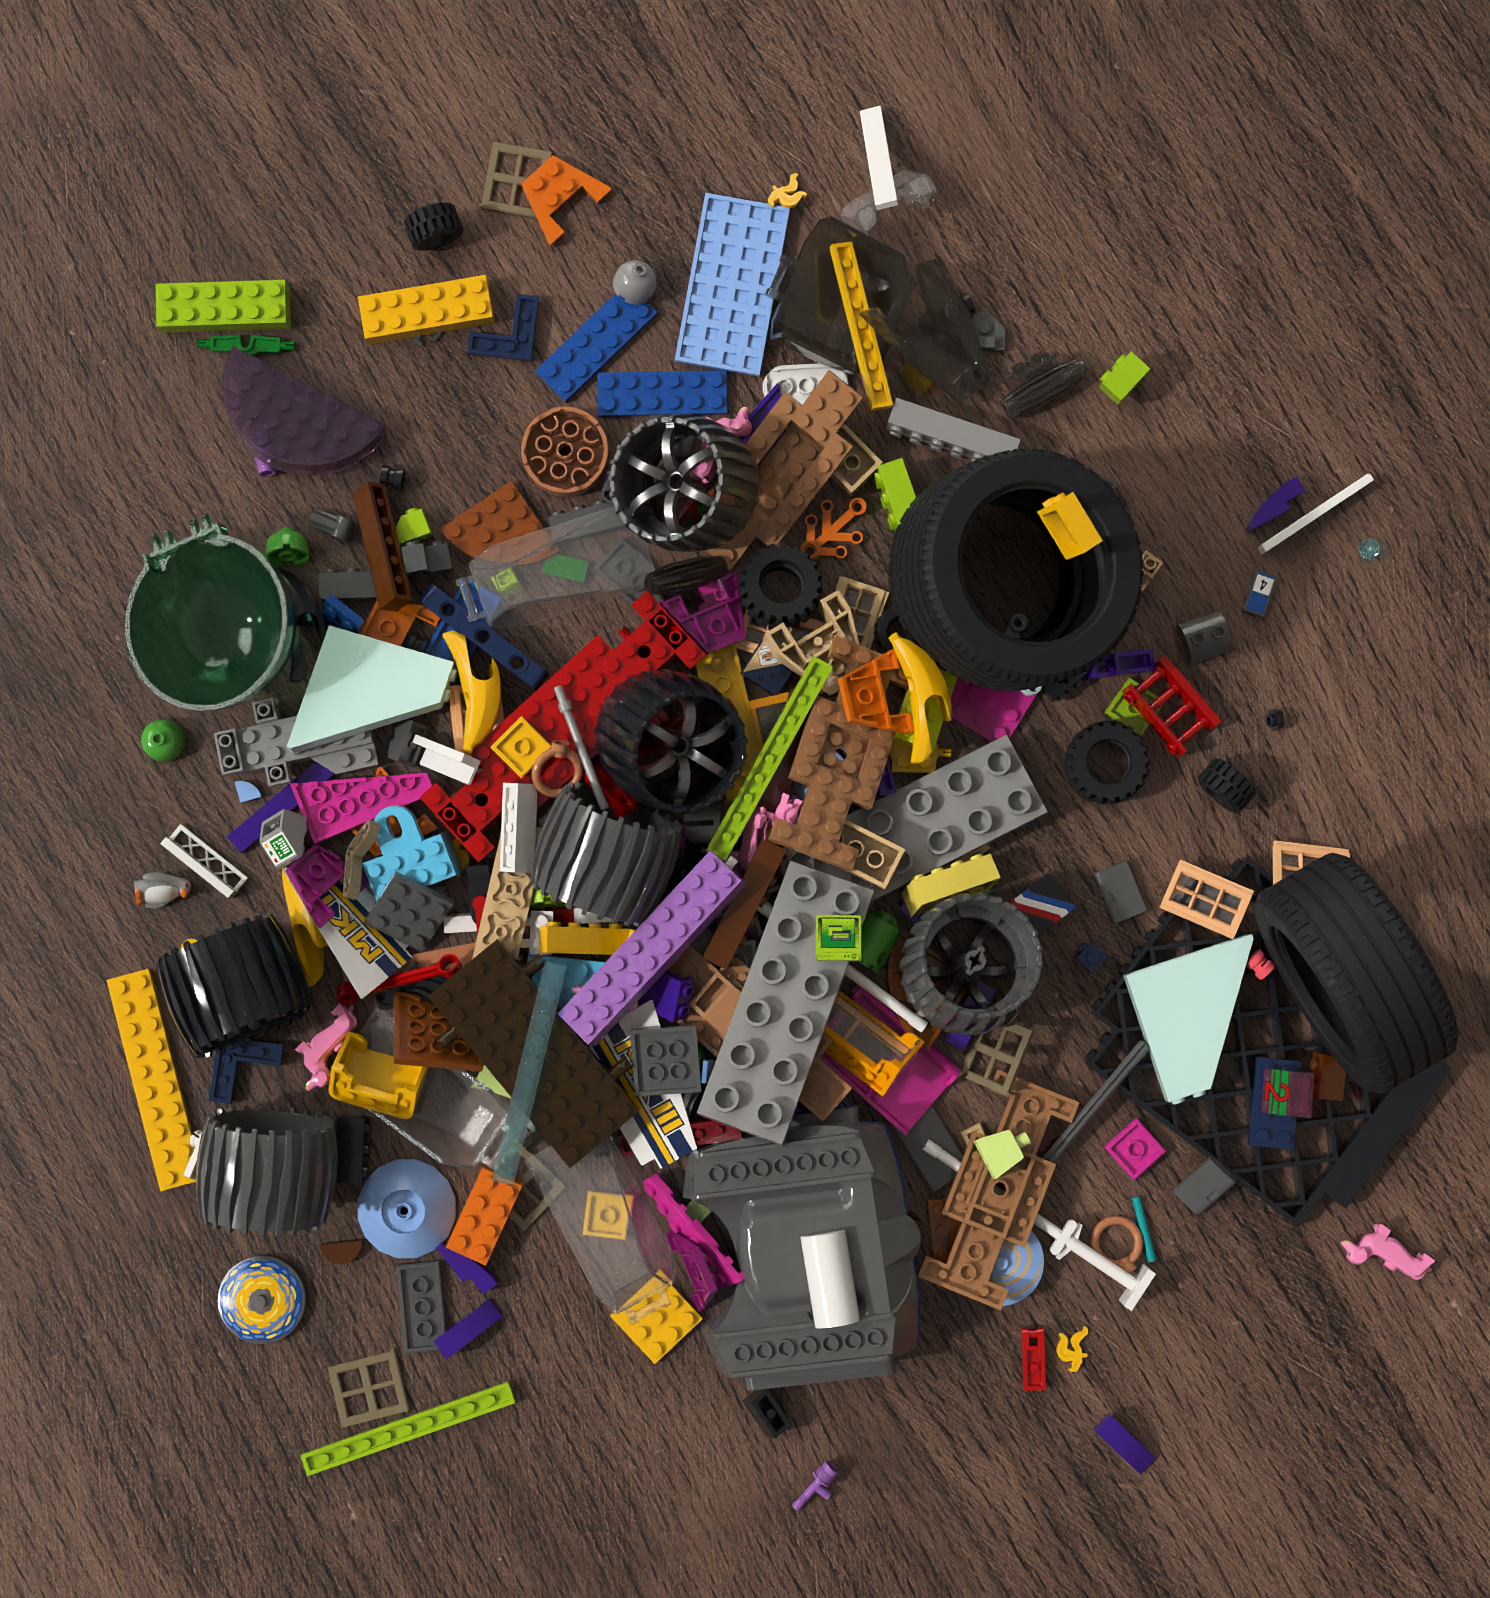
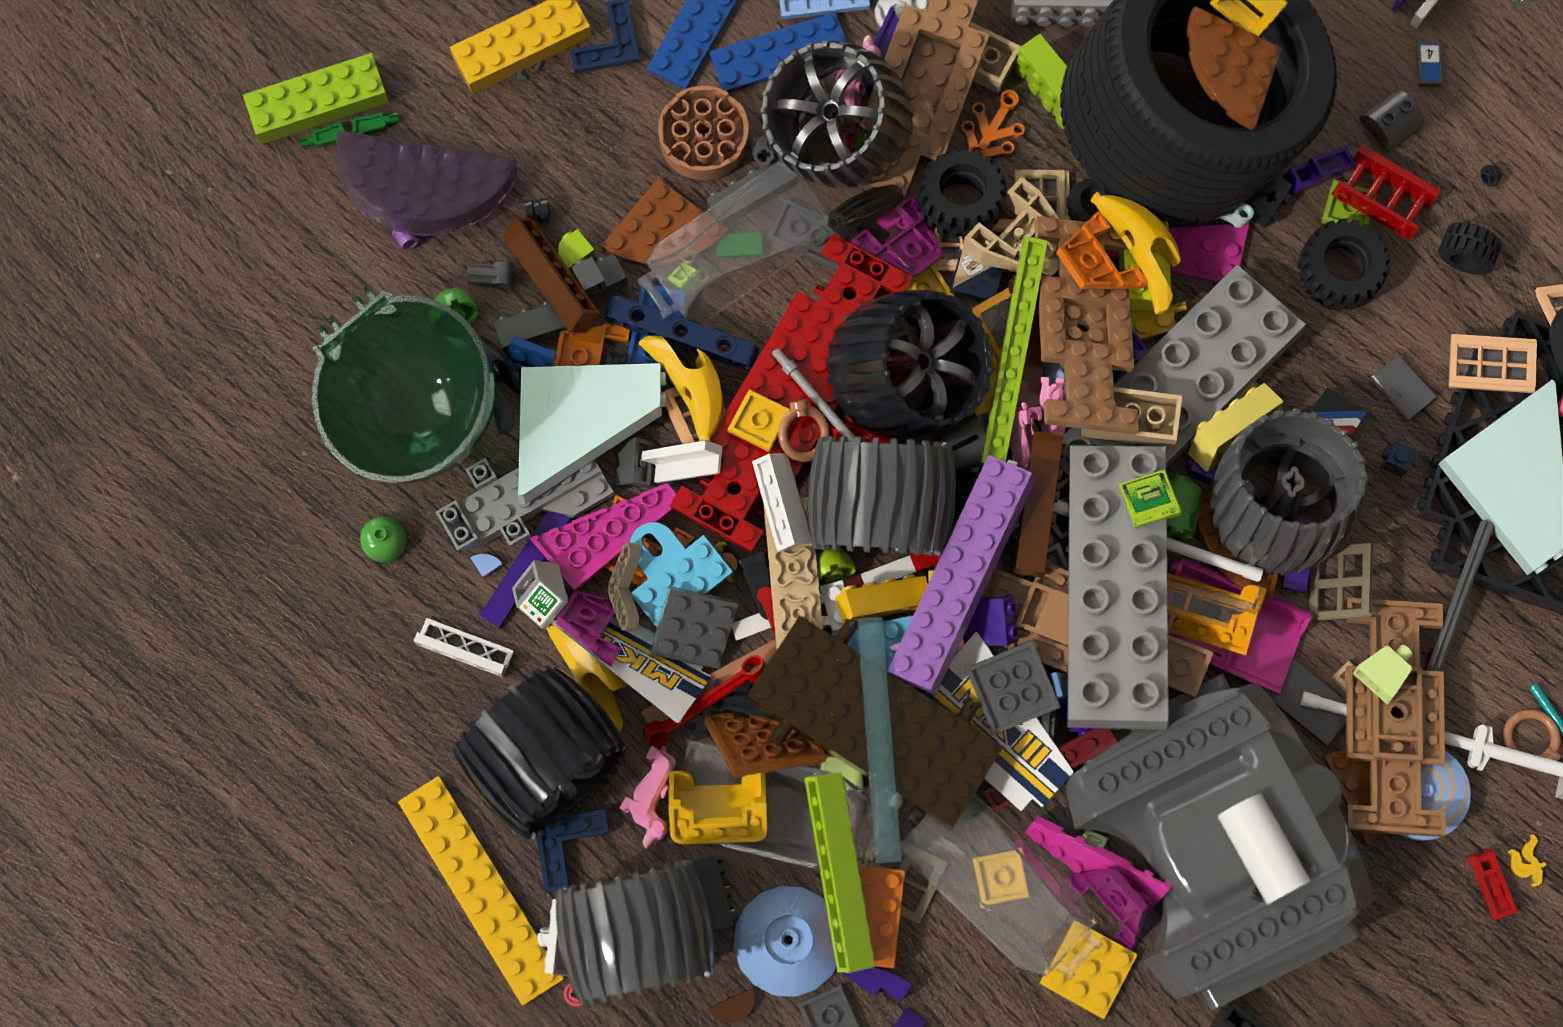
camera: 25 degrees left, 10 degrees down
(159, 889) = (426, 689): animal -> none
(460, 1173) = (840, 872): none -> lime brick
(1034, 579) = (1231, 65): none -> dark orange plate
(1134, 1149) = (1514, 636): dark pink plate -> none

